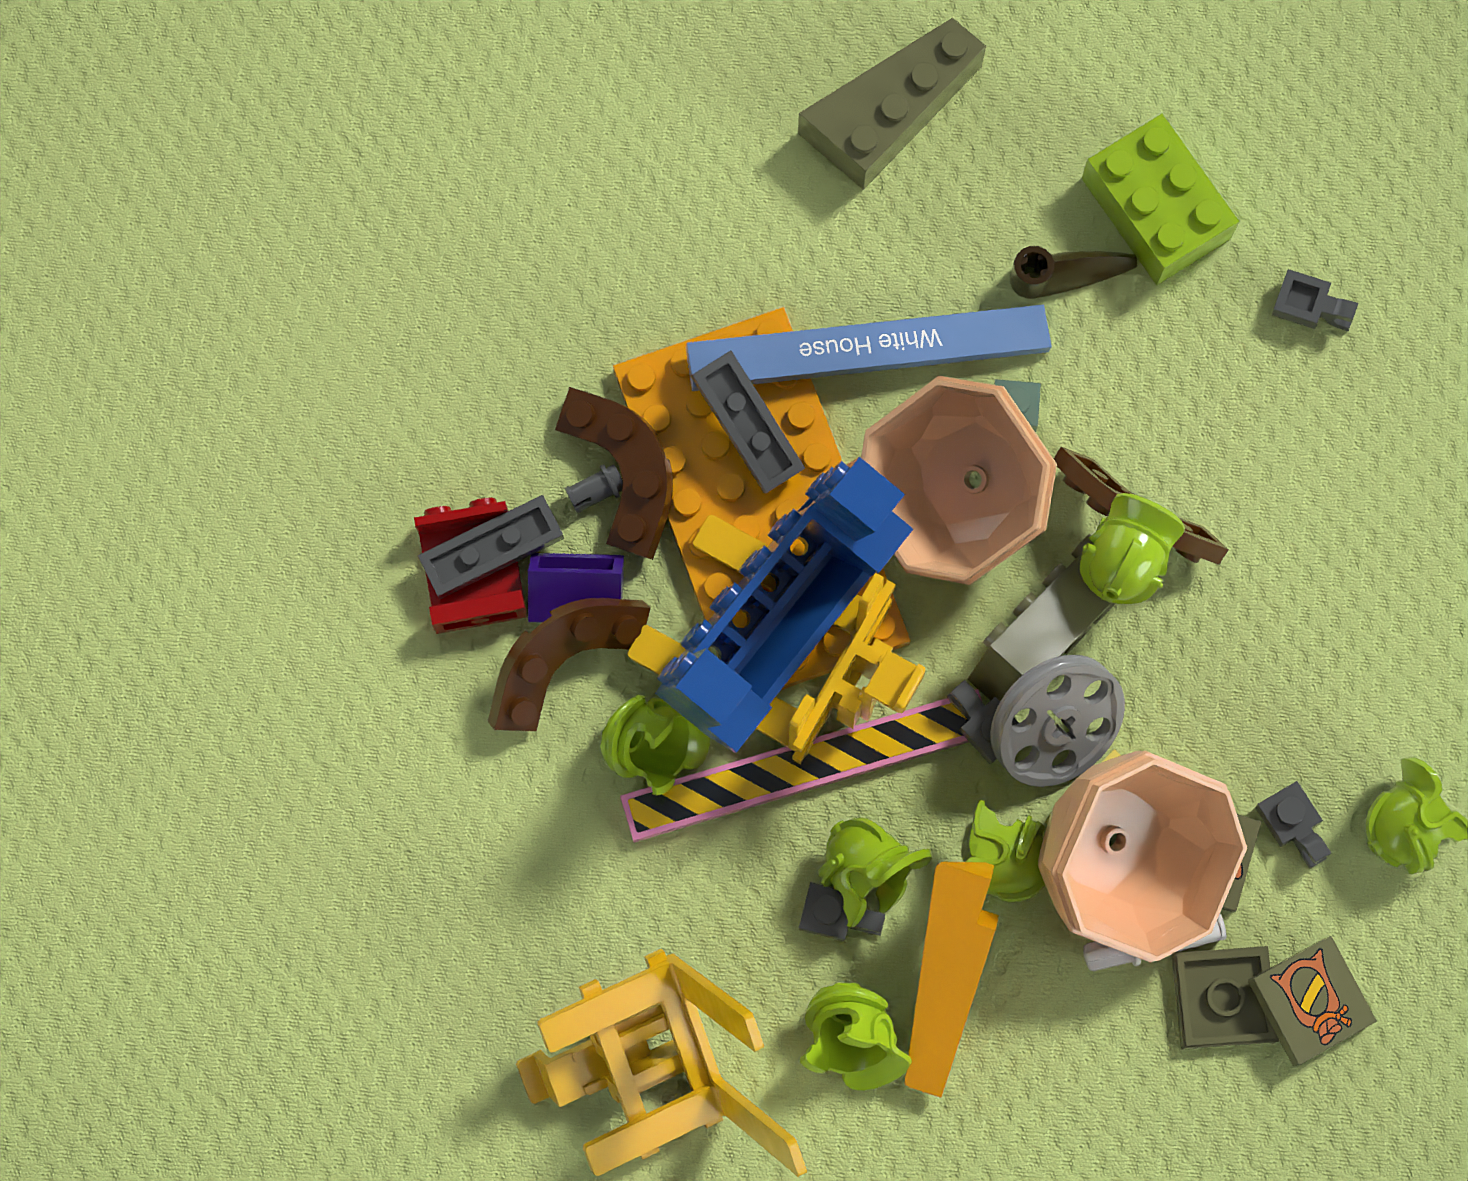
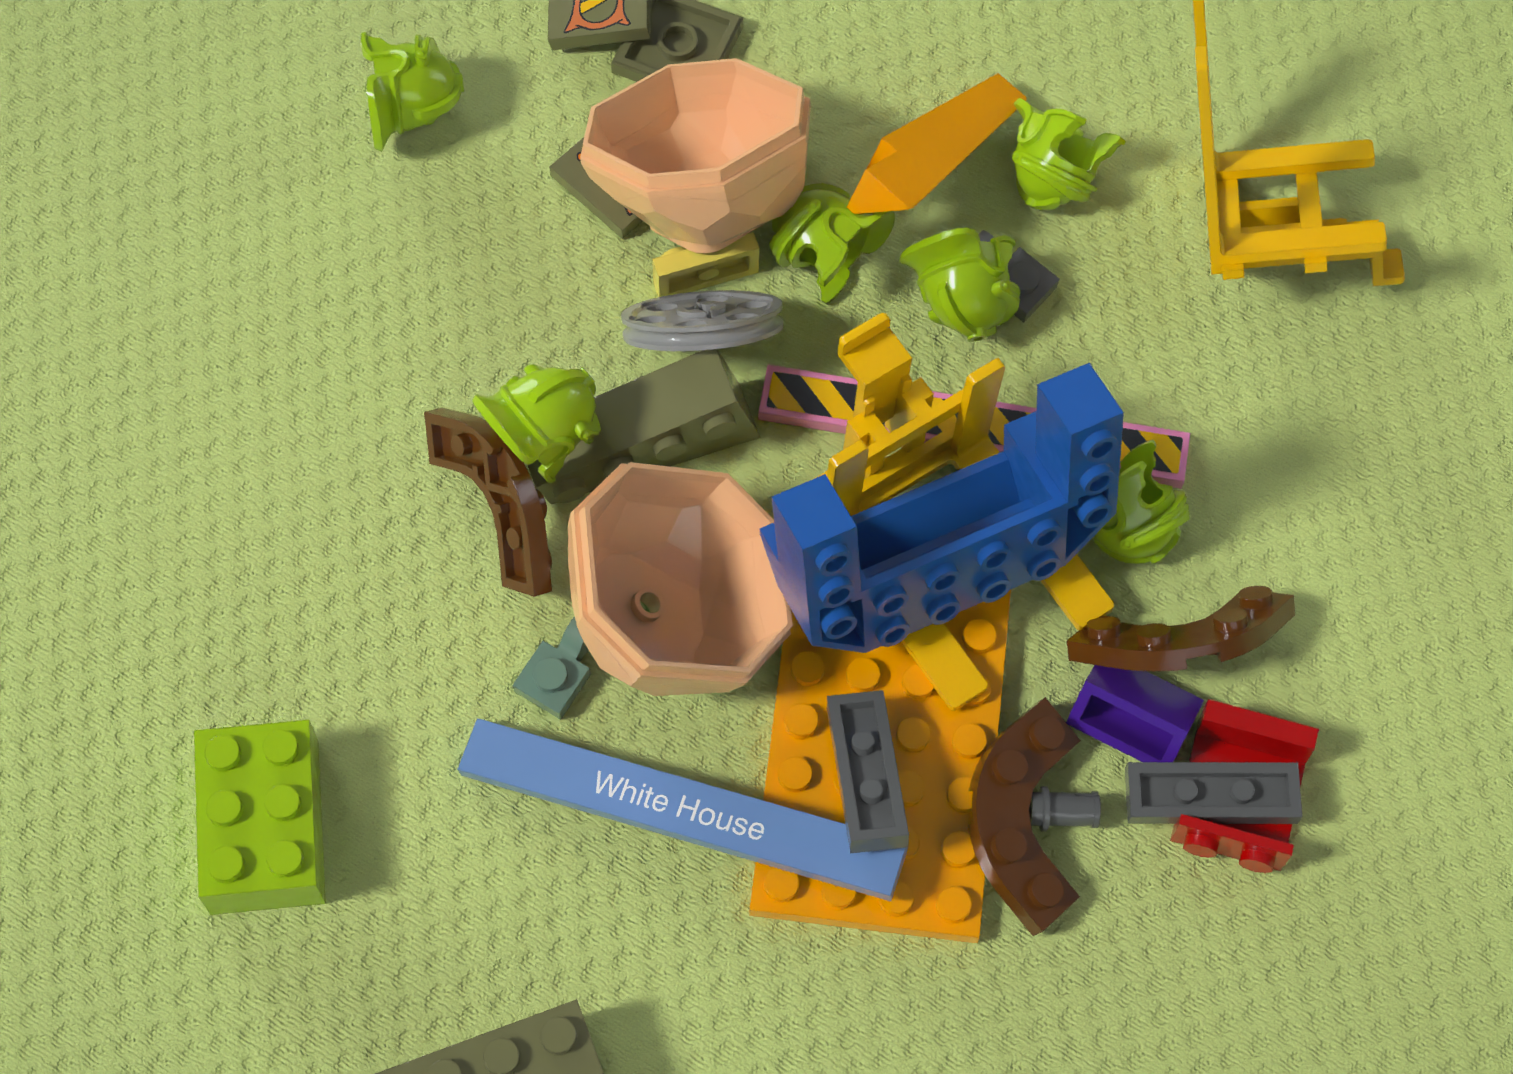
camera: 155 degrees left, 10 degrees down
(979, 718) = (772, 367): dark grey plate -> none
(1065, 270) = (409, 801): dark brown piece -> none
(1291, 818) = (517, 159): dark grey plate -> none
(1306, 299) = (170, 632): dark grey plate -> none

